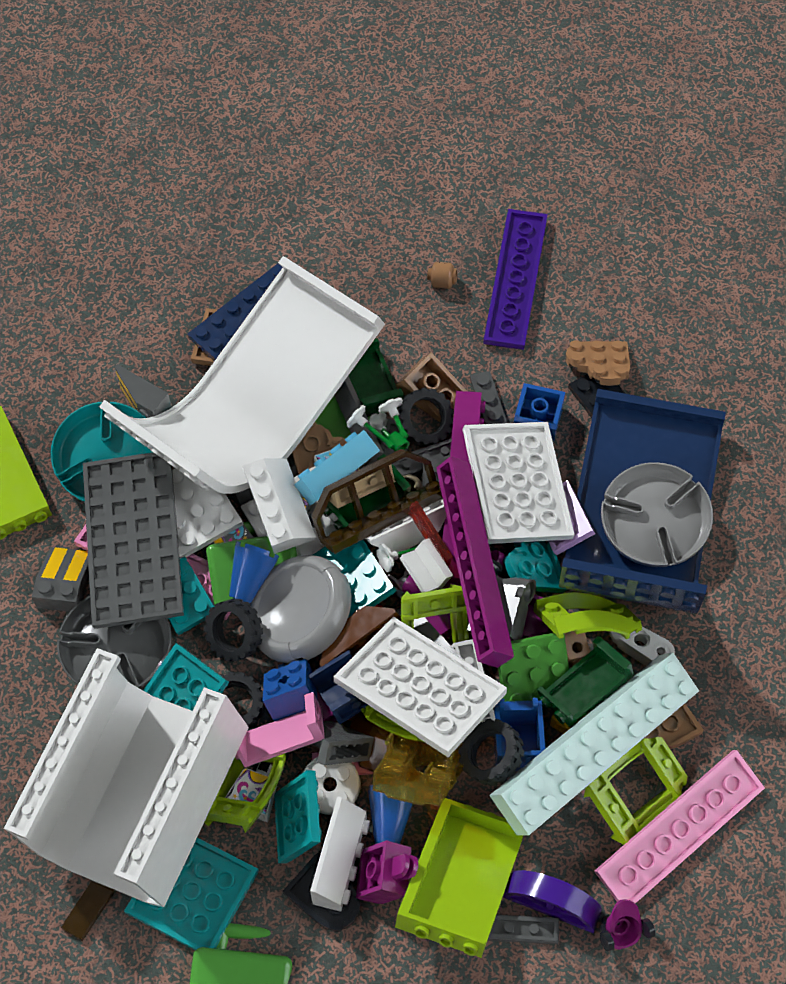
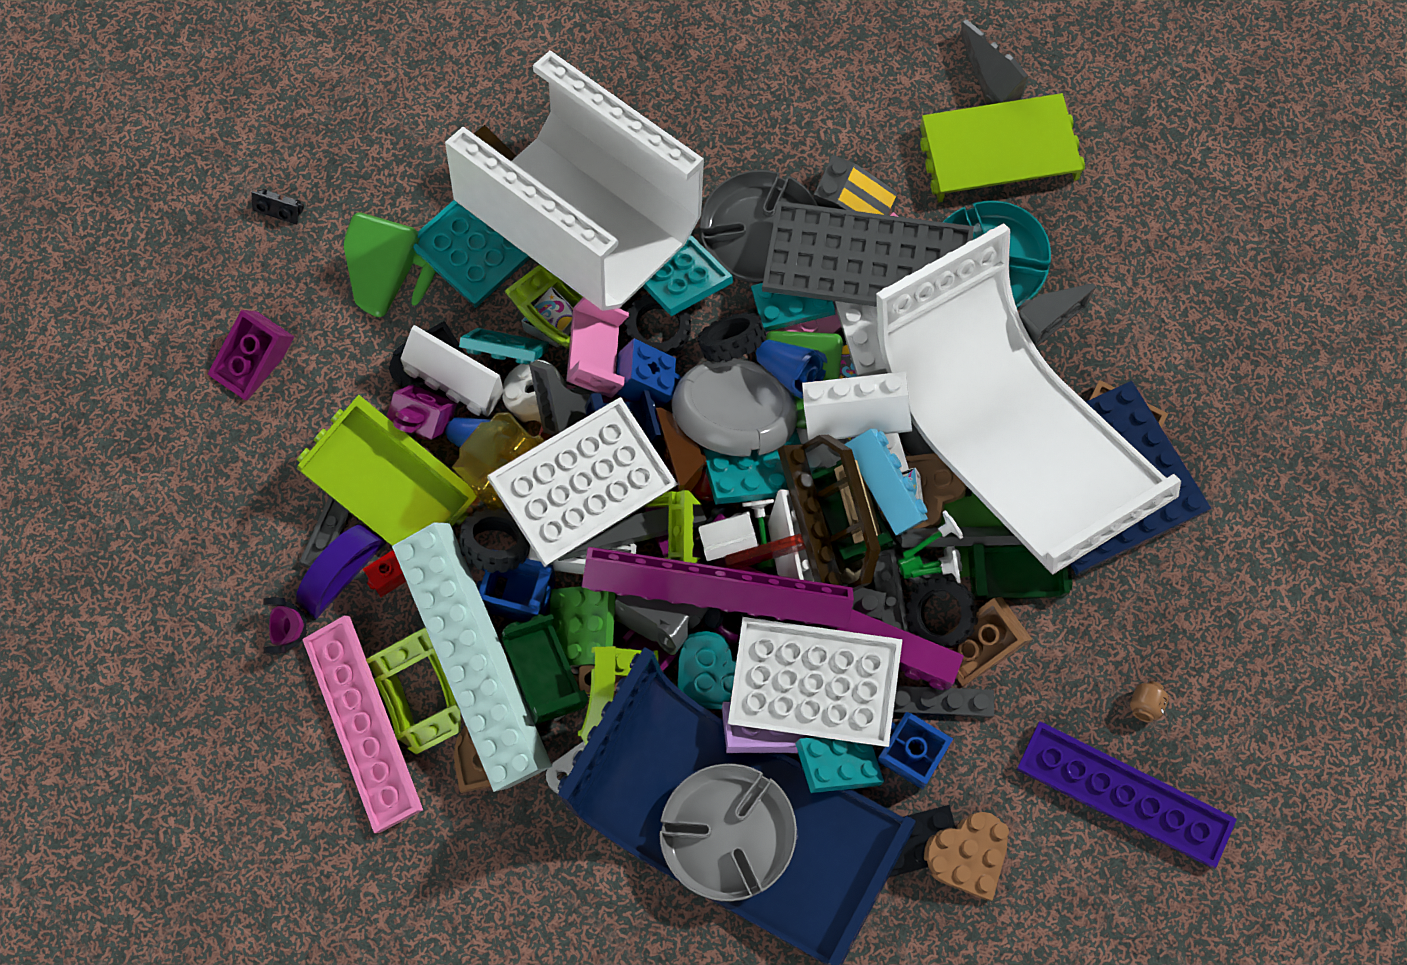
camera: 105 degrees right, 10 degrees up
(542, 863) = (387, 581): none -> red head
(575, 457) = (838, 764): none -> teal plate

